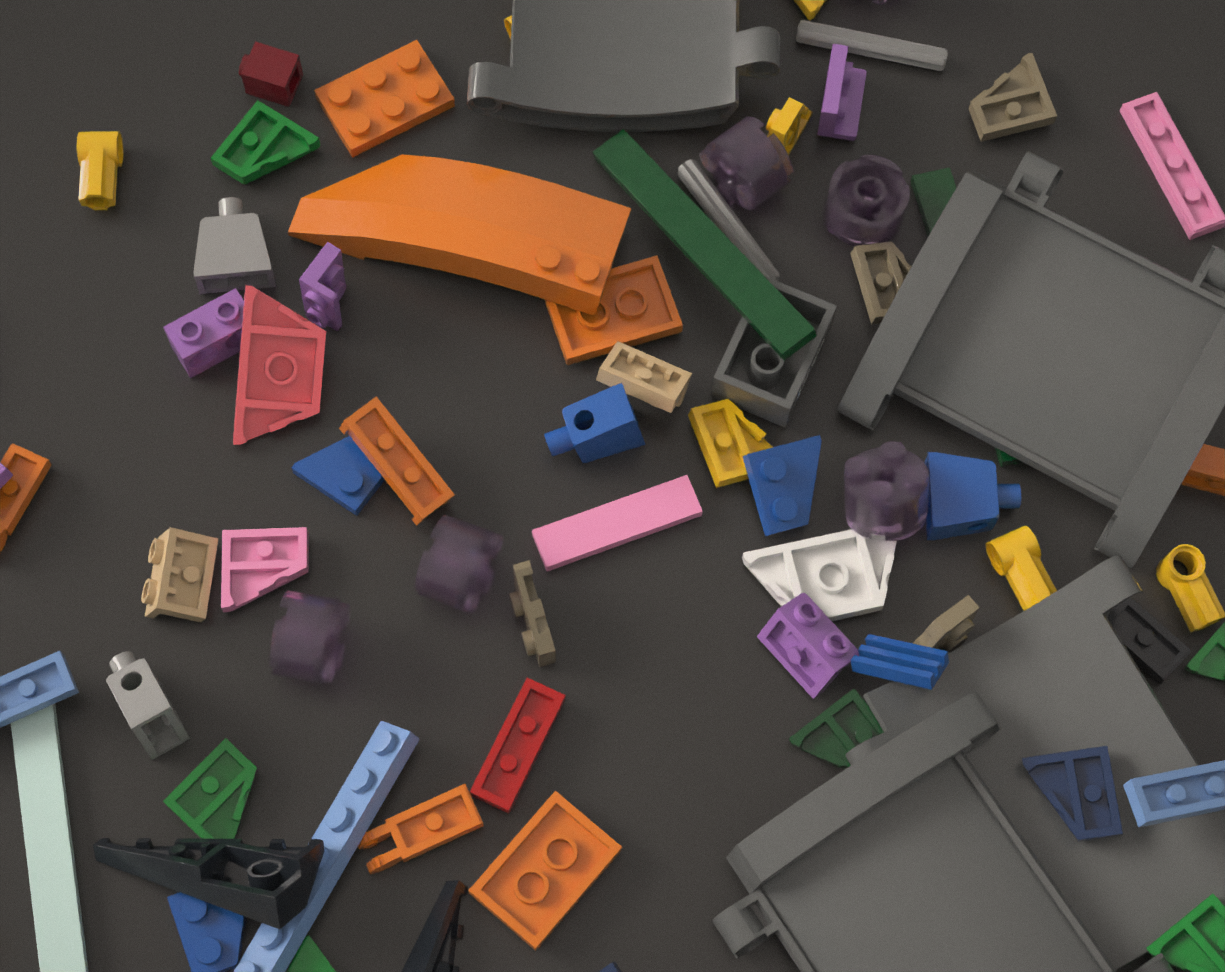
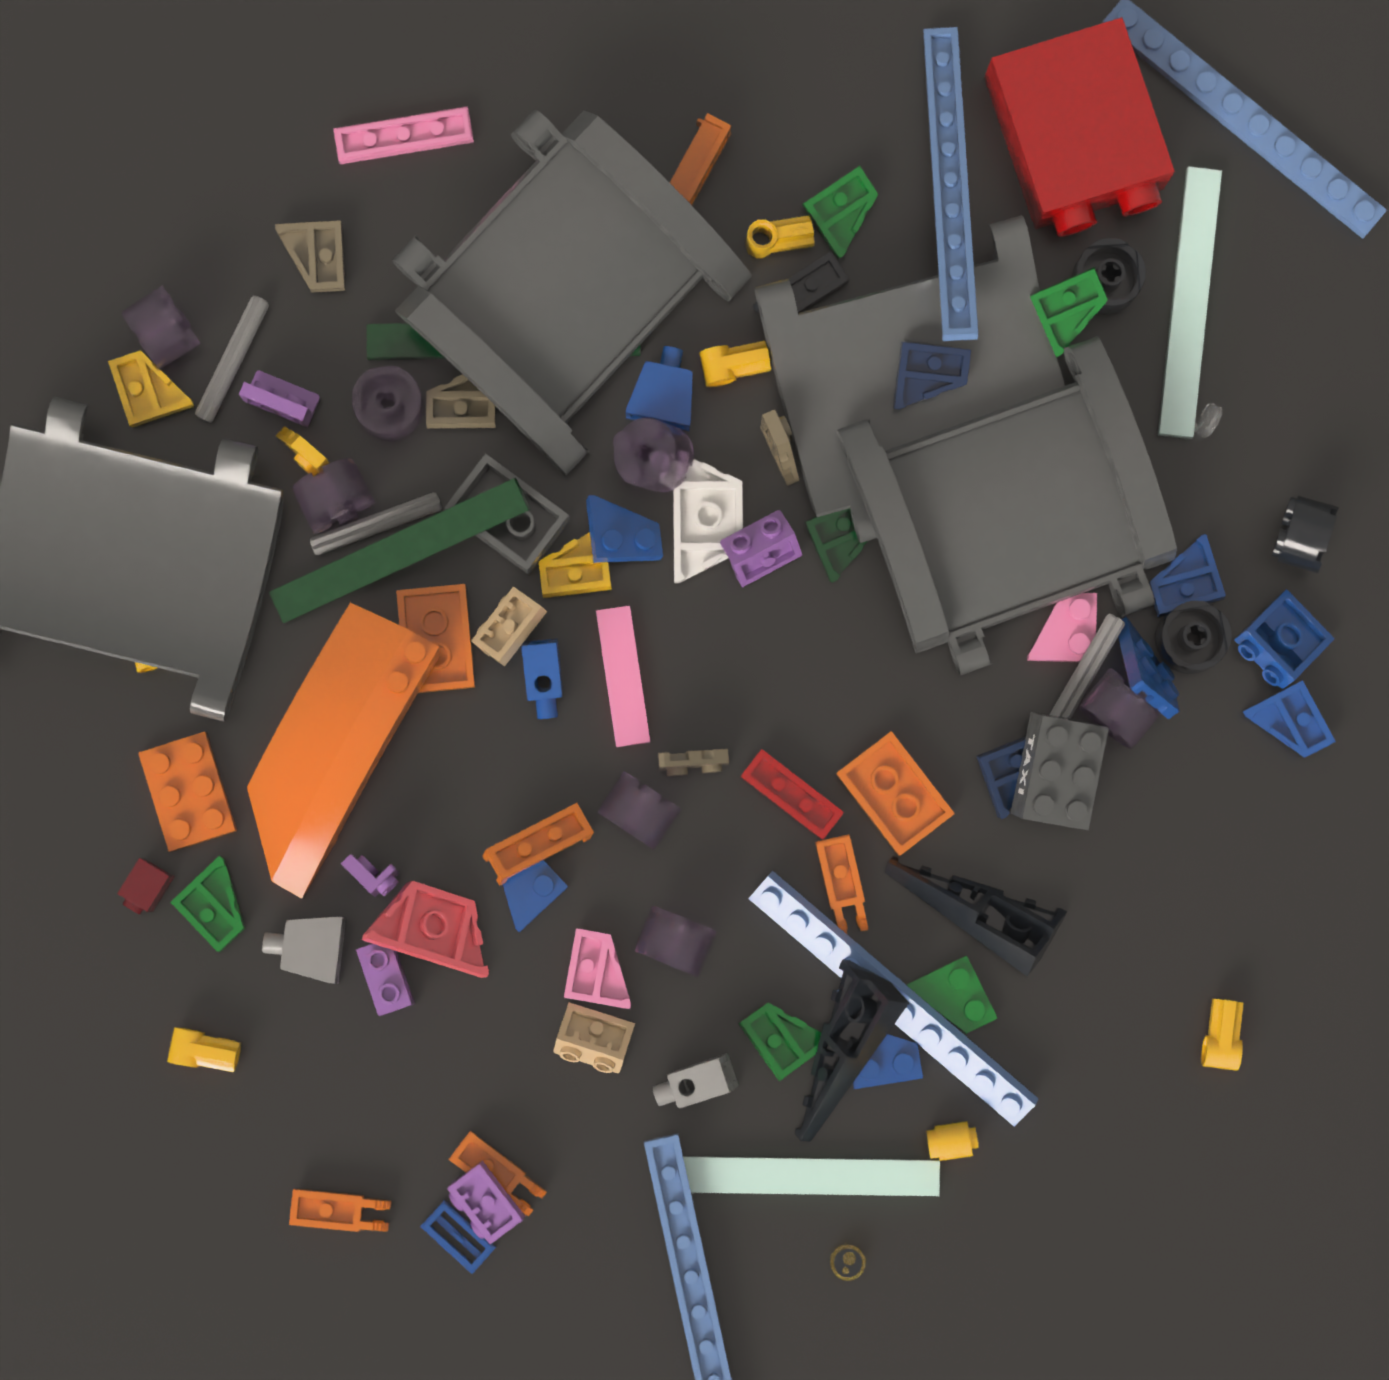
camera: 80 degrees left, 15 degrees up
(900, 661) = (792, 478): blue tile -> none

